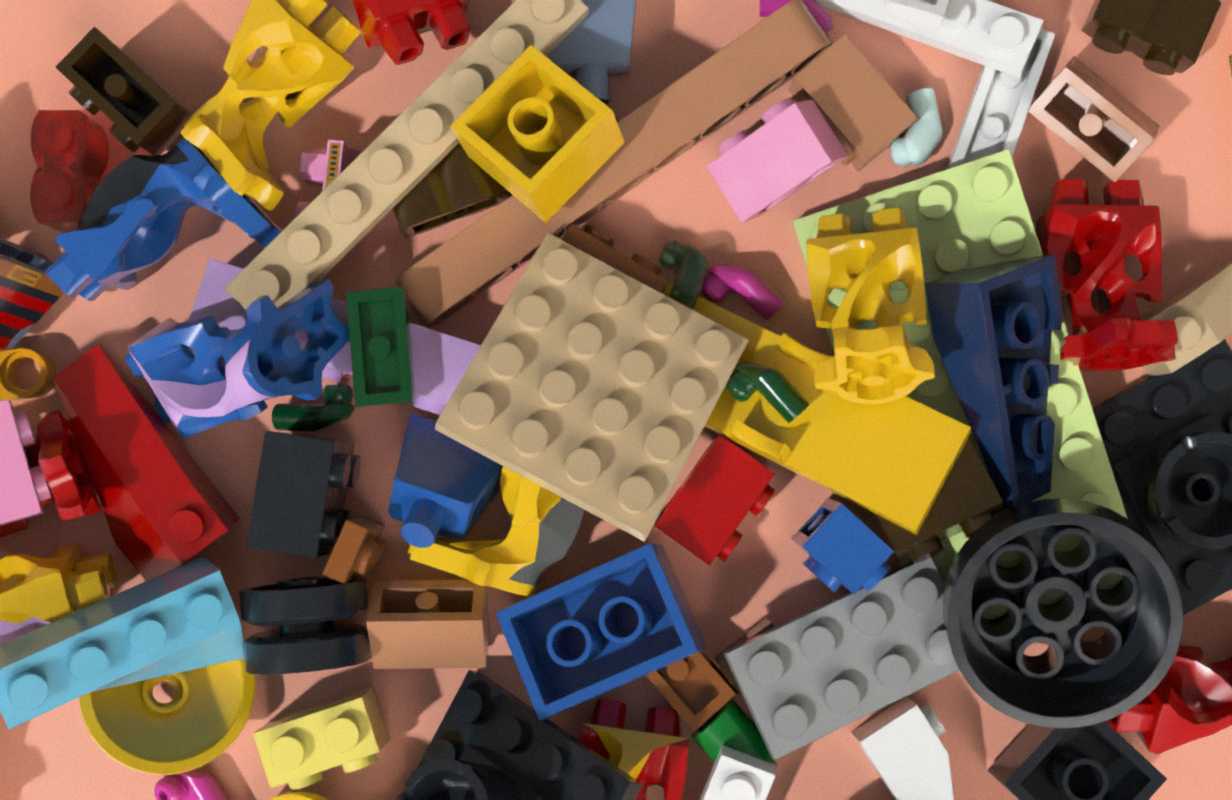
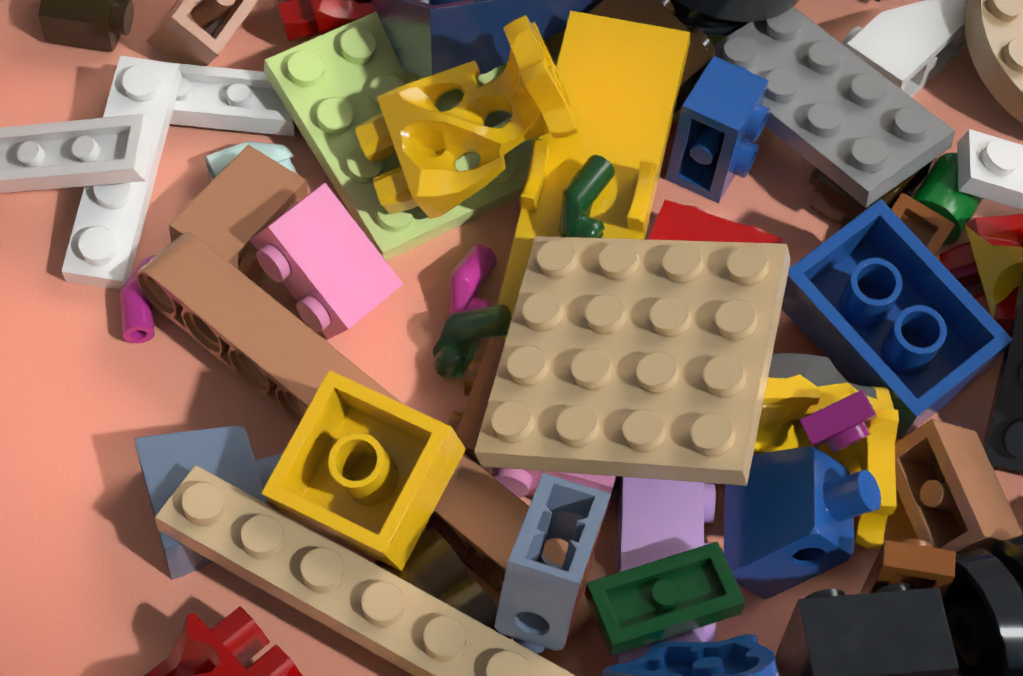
camera: 110 degrees left, 30 degrees down
(417, 258) = (540, 596): none -> sand blue torso
(480, 529) = (840, 422): none -> magenta plate

